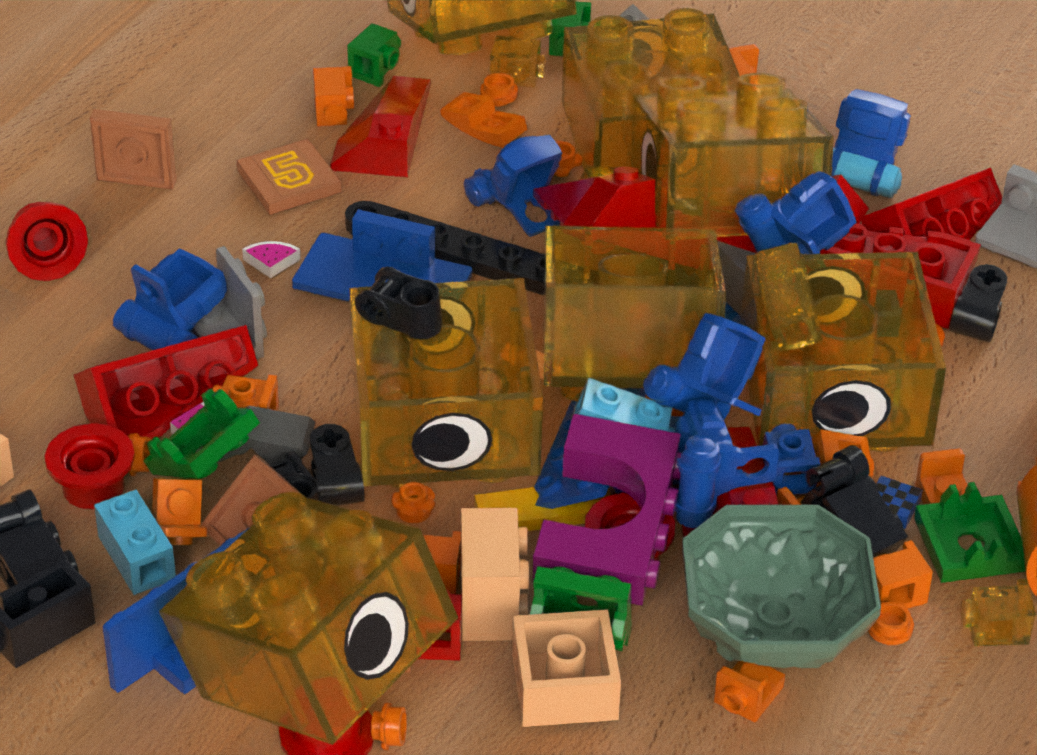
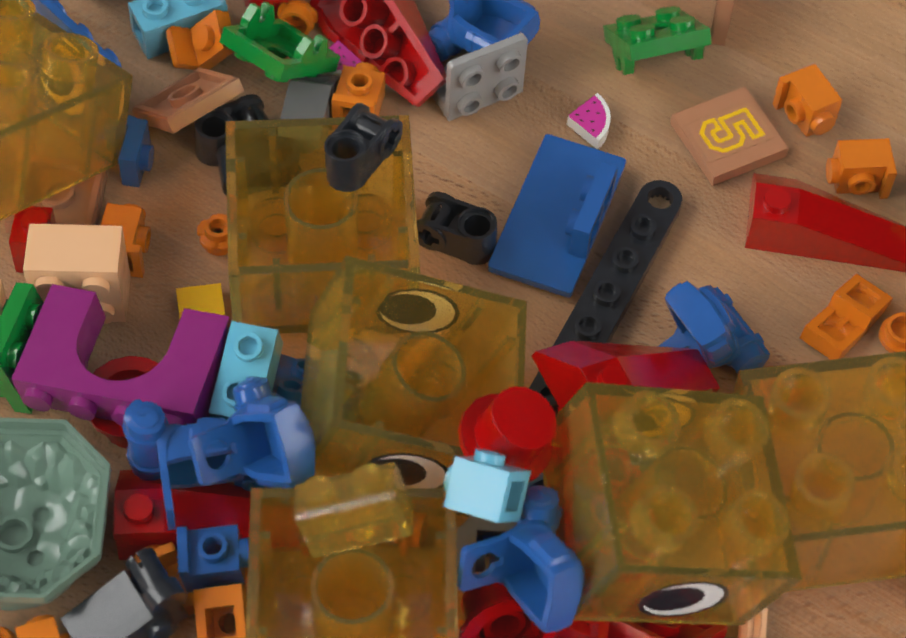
camera: 90 degrees right, 15 degrees up
(198, 204) = (655, 35): none -> green piece
(257, 121) = (808, 100): none -> orange brick
(692, 217) = (513, 424): none -> red piece
(757, 219) = (486, 487): none -> medium azure brick

